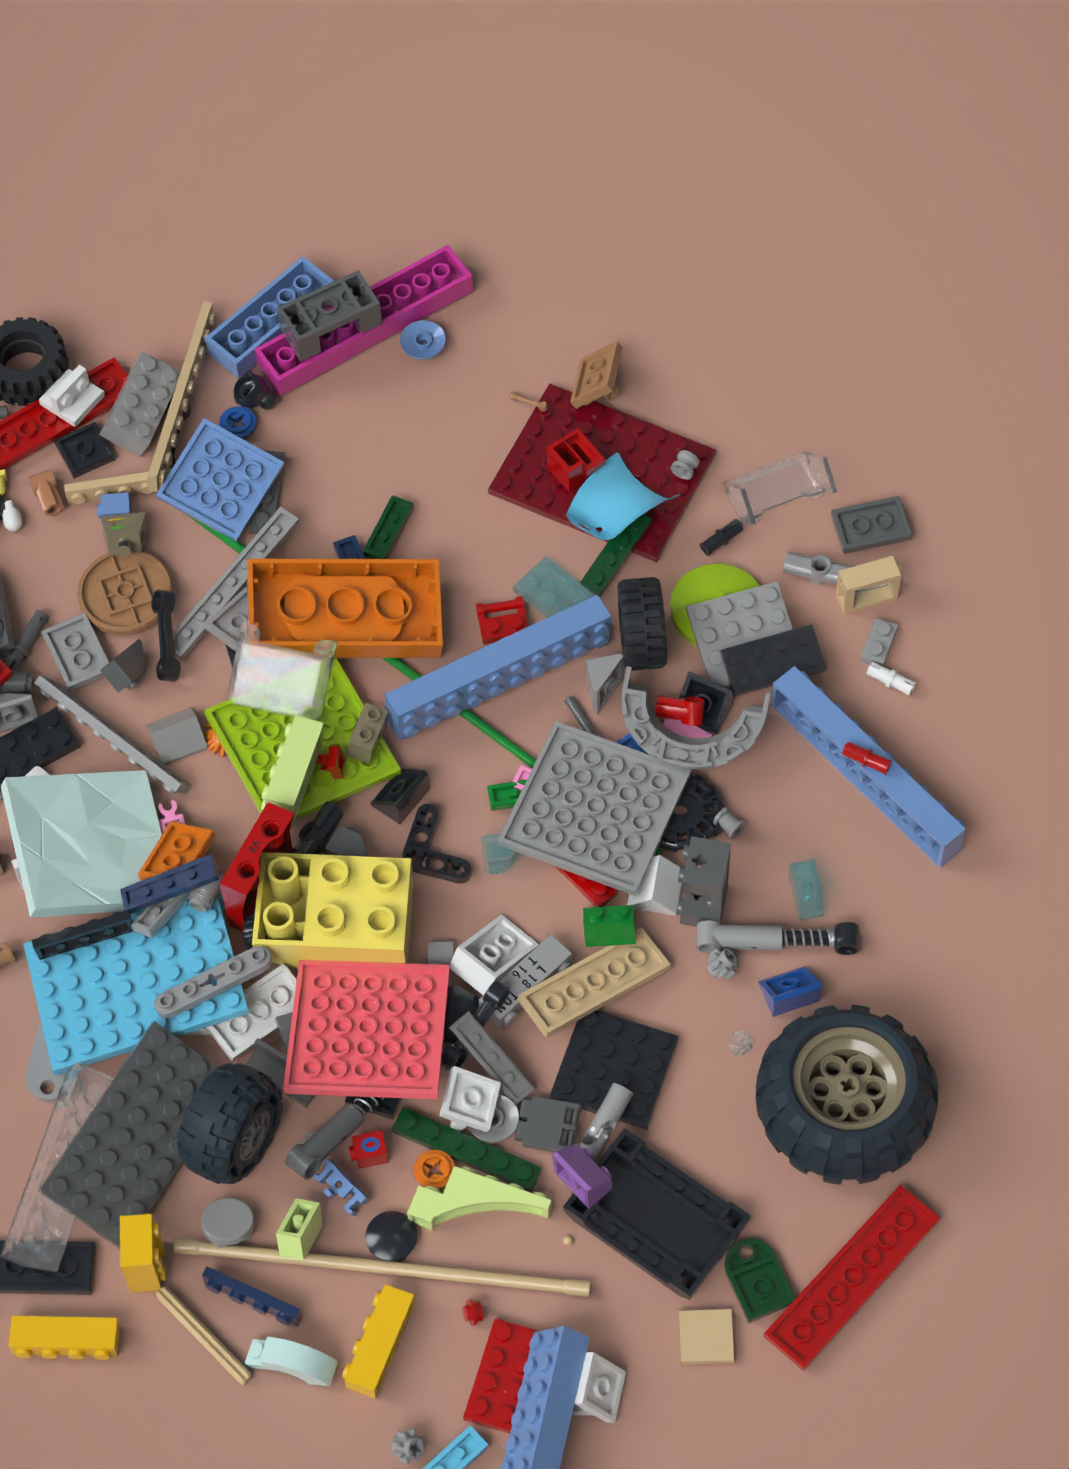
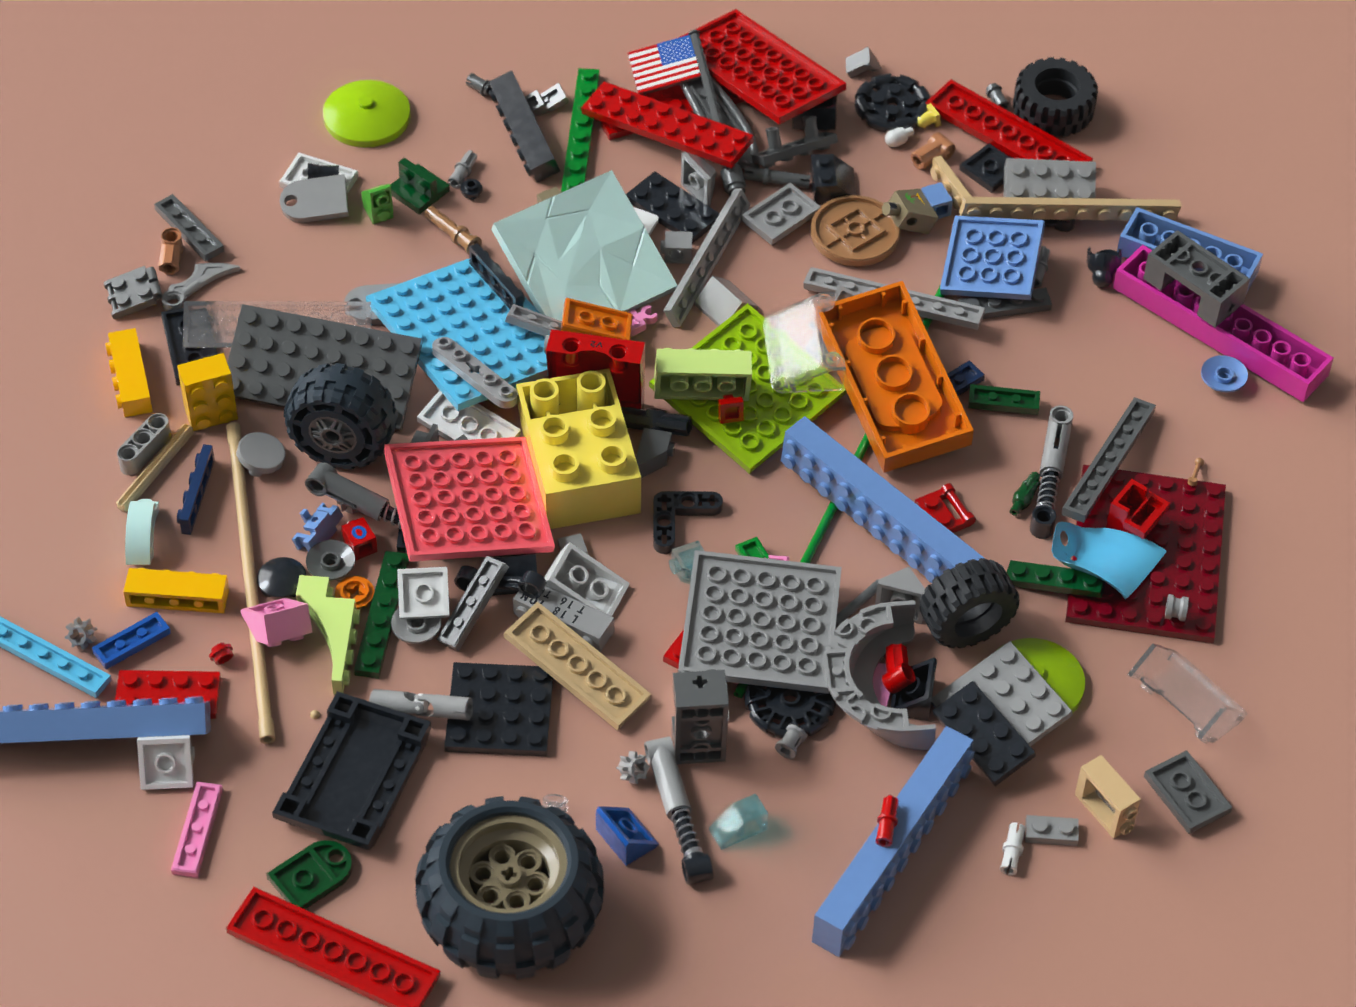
camera: 70 degrees right, 10 degrees down
(51, 594) = (830, 178): none -> black slope
(72, 396) = (1034, 137): white bracket -> none
(88, 756) = (677, 247): none -> light grey brick
(126, 667) = (775, 245): dark grey slope -> none
(168, 666) = (817, 263): black piece -> none
(169, 884) = (554, 311): dark blue plate -> none
(175, 1350) = (144, 444): none -> light grey beam
(238, 414) = (1061, 258): blue gear -> none
(299, 1229) = (262, 501): yellowish green brick -> none
(367, 733) = (768, 425): dark tan brick -> none
(389, 1171) = (327, 553): none -> dark grey dish
(402, 794) = (725, 479): black slope -> none
(428, 1398) = (131, 640): none -> blue plate
(453, 1247) = (278, 621): none -> bright pink slope
(486, 515) = (1051, 471): none -> piece
(498, 463) = (1108, 460): none -> dark grey plate
(504, 546) = (1024, 495): none -> dark green piece
(547, 1124) = (423, 667): dark grey plate -> none
(550, 588) = (996, 537): clear light blue plate -> none
(582, 1174) = (364, 687): medium lavender slope -> none
(597, 376) = (1245, 515): medium nougat plate -> none
(609, 925) = (641, 662): green slope -> none
(676, 1377) = (197, 830): none -> bright pink tile
(706, 1336) = (242, 844): tan tile -> none
(721, 537) = (1112, 664): black axle -> none
(806, 567) = (1111, 745): light grey piece -> none

